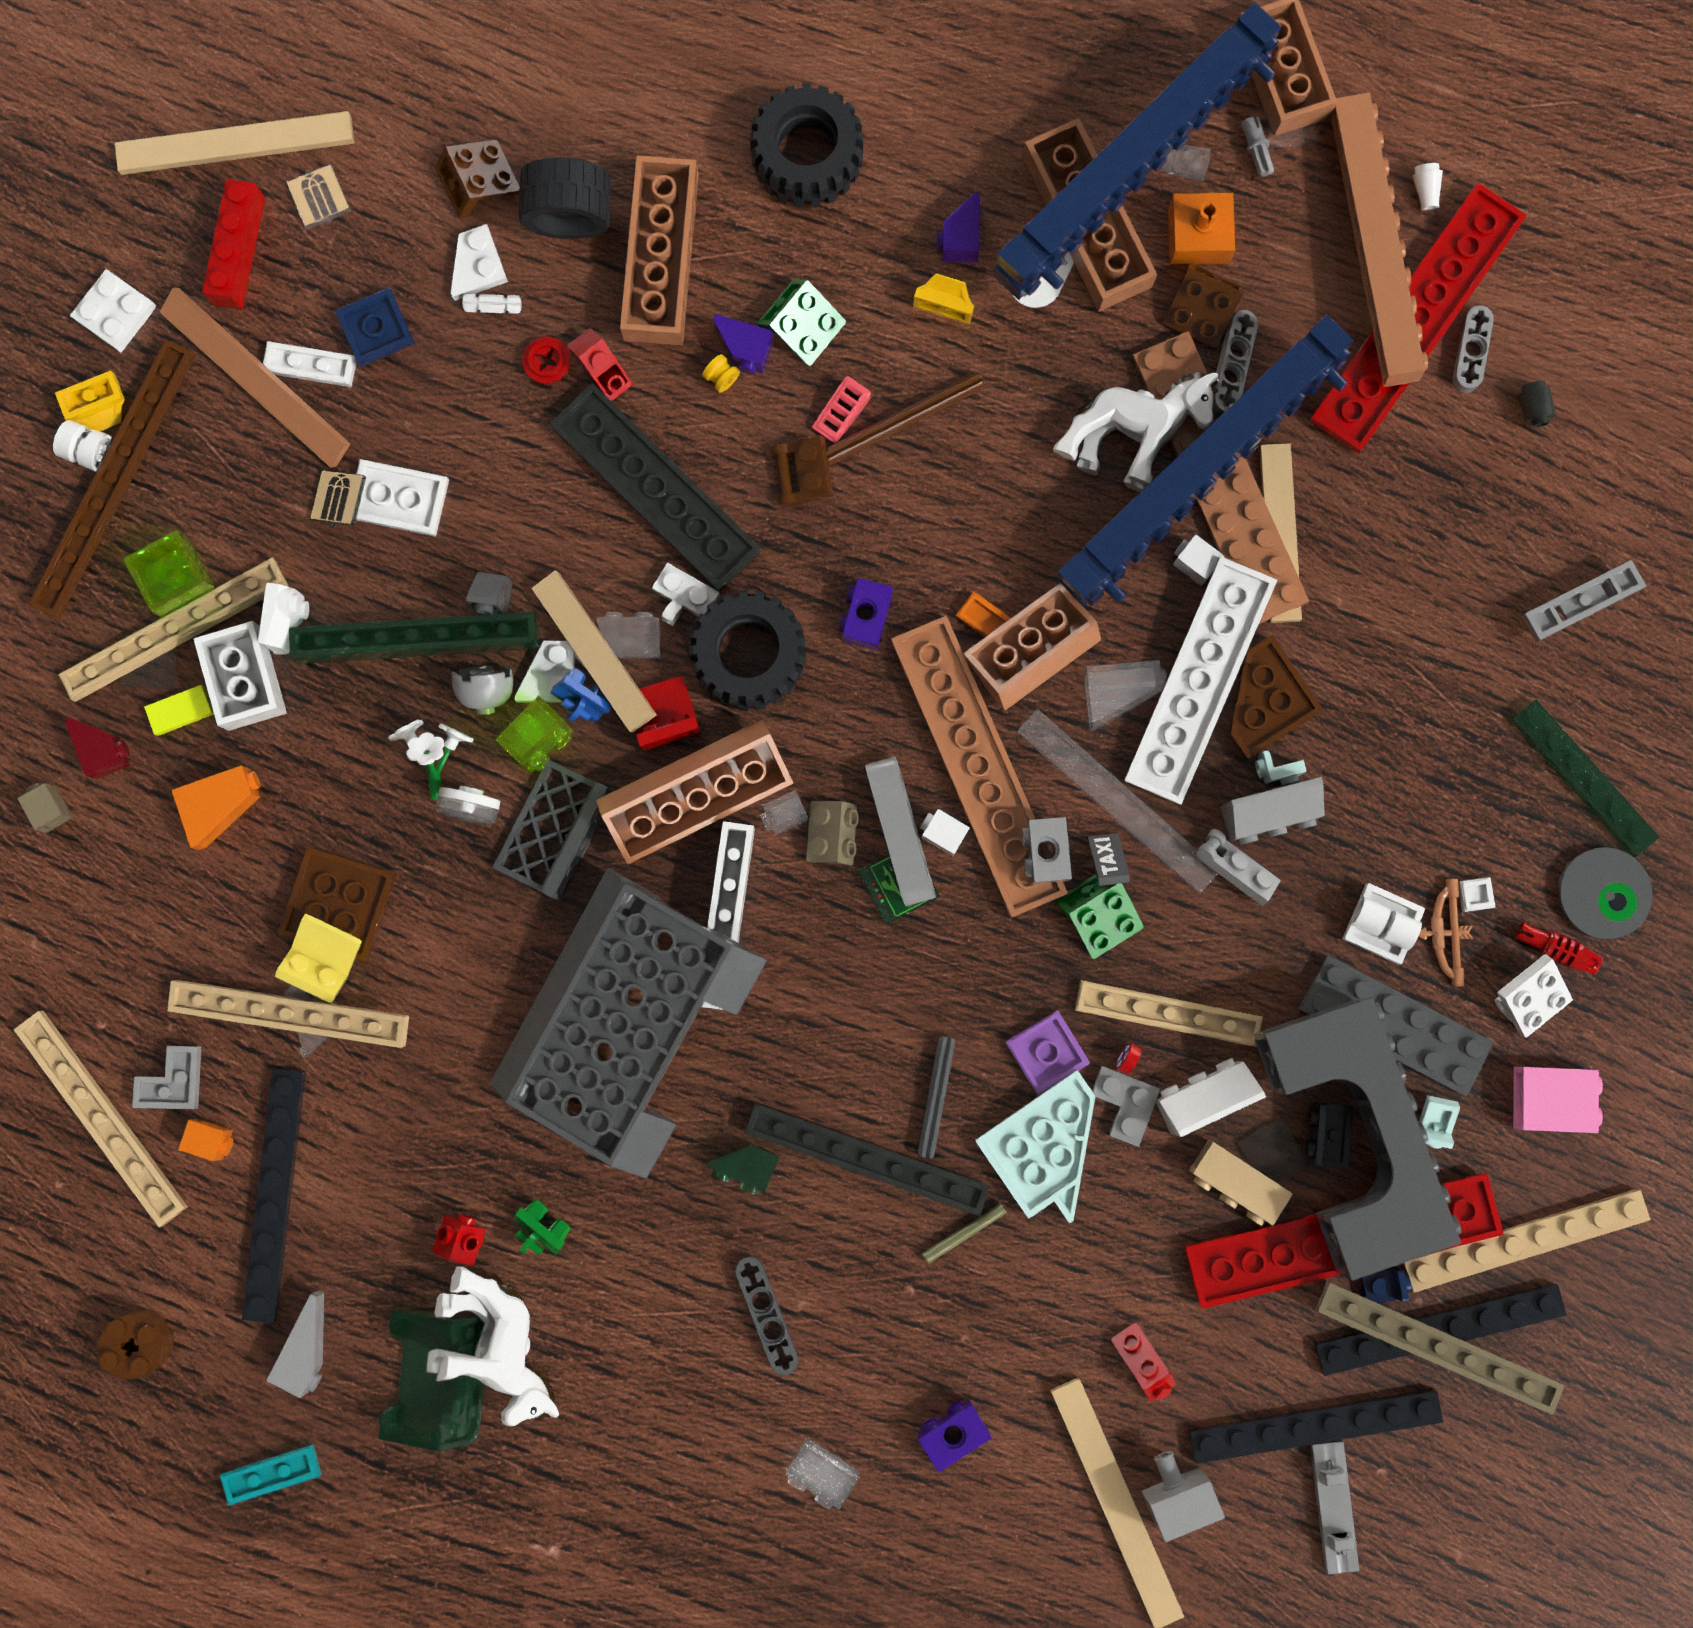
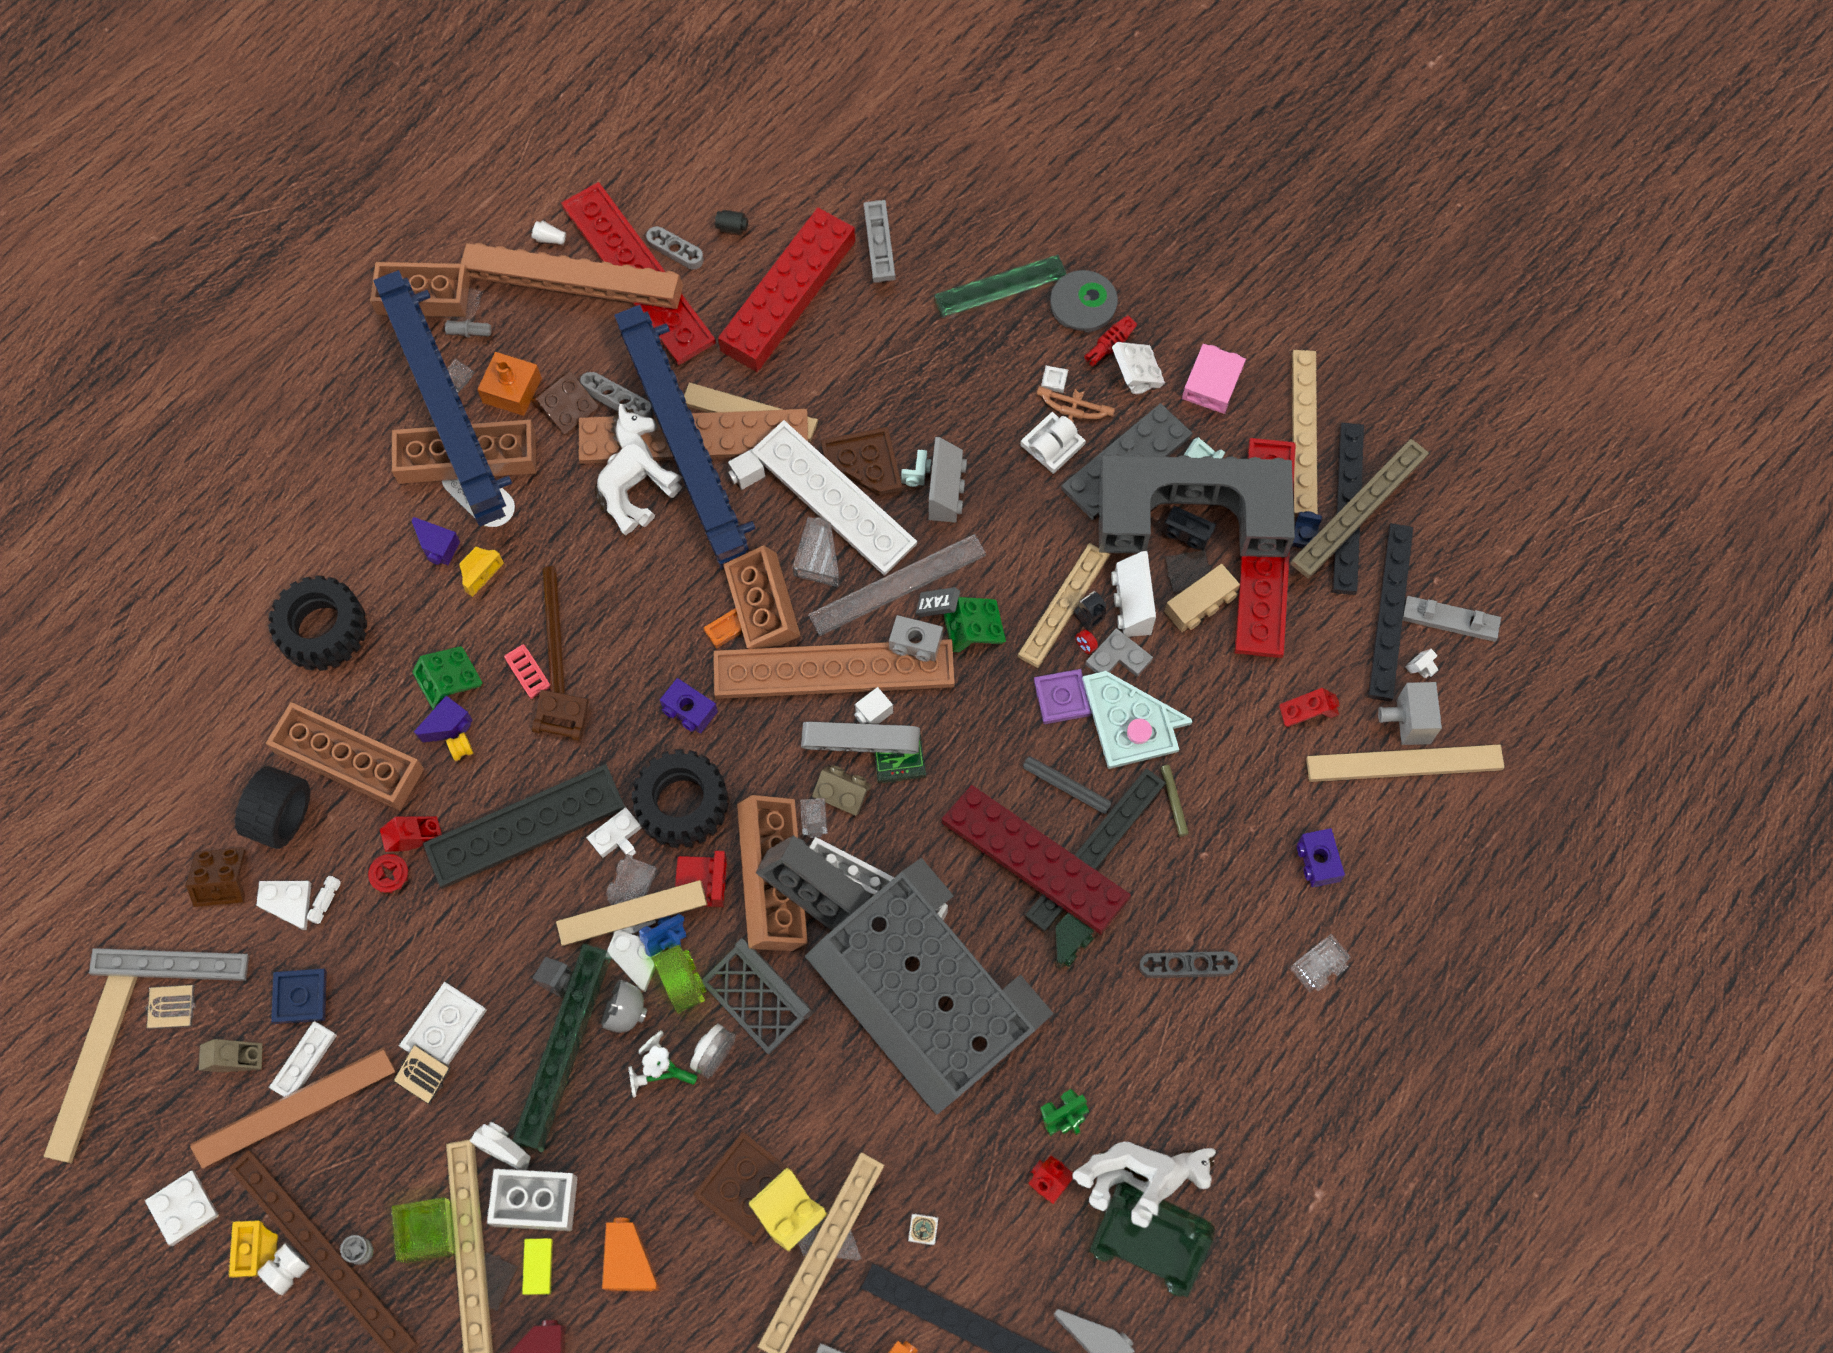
camera: 70 degrees left, 15 degrees down
(124, 507) = (352, 1248): none -> light grey wheel
(234, 244) = (178, 1084): red brick -> none
(284, 285) = (230, 1056): none -> dark tan slope
(359, 172) = (169, 964): none -> light grey tile
(359, 1114) = (923, 1229): none -> tile
(692, 844) = (811, 882): none -> dark grey brick
(825, 1093) = (1036, 859): none -> dark red plate
(1031, 1163) = (1139, 731): none -> bright pink tile
(1168, 1050) = (1091, 610): none -> black leg
(1237, 867) = (976, 521): light grey plate -> none
(1256, 1488) = (1423, 664): none -> white tile
(1469, 512) = (787, 289): none -> red brick

